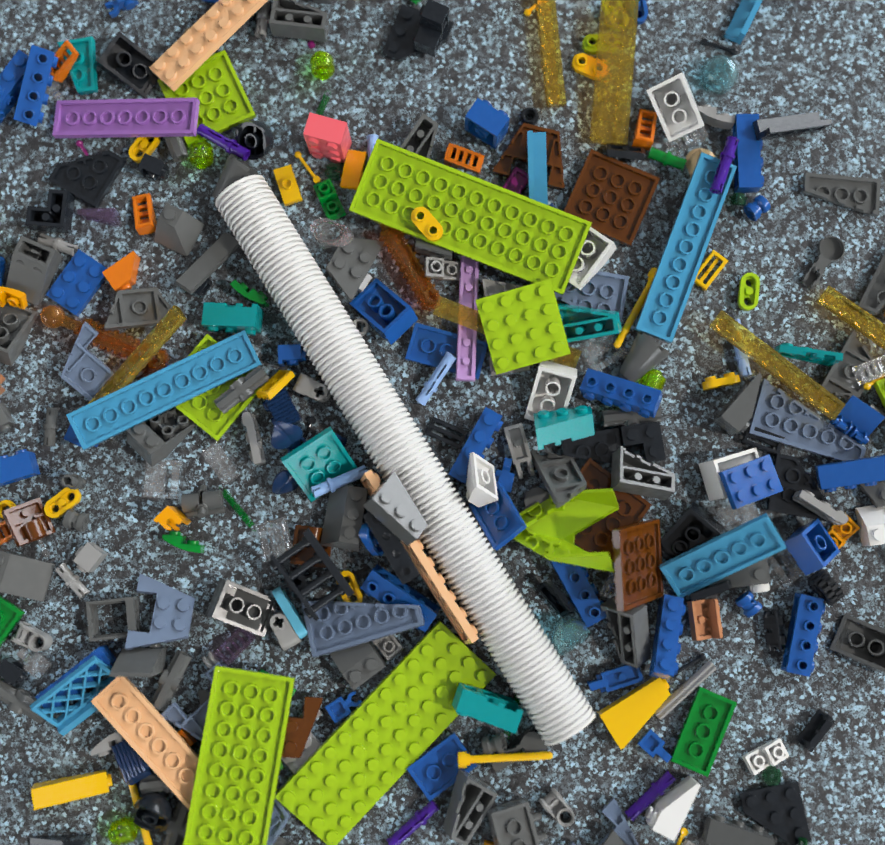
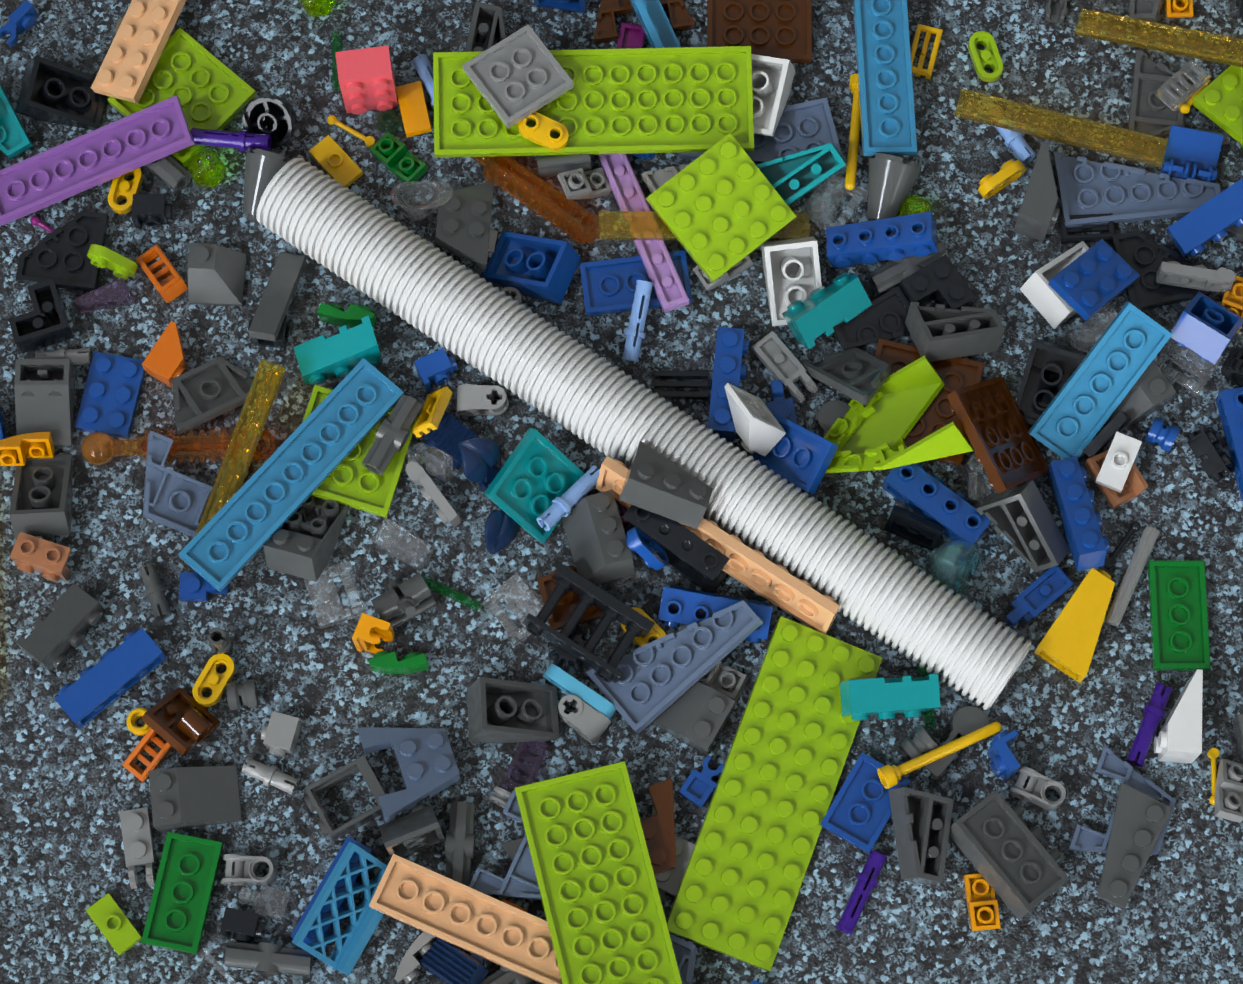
camera: 25 degrees left, 10 degrees down
(118, 199) = (107, 258): none -> lime plate
(264, 419) = (436, 461): none -> clear plate
(425, 179) = (518, 76): none -> light grey plate
(465, 152) = (550, 31): orange slope -> none
(544, 770) = (1002, 759): none -> blue bracket
(653, 744) = (1122, 658): blue plate -> none
(710, 614) = (1118, 462): none -> white plate
(760, 588) = (1167, 408): white tile -> none
(810, 355) = (1098, 100): teal wing -> none

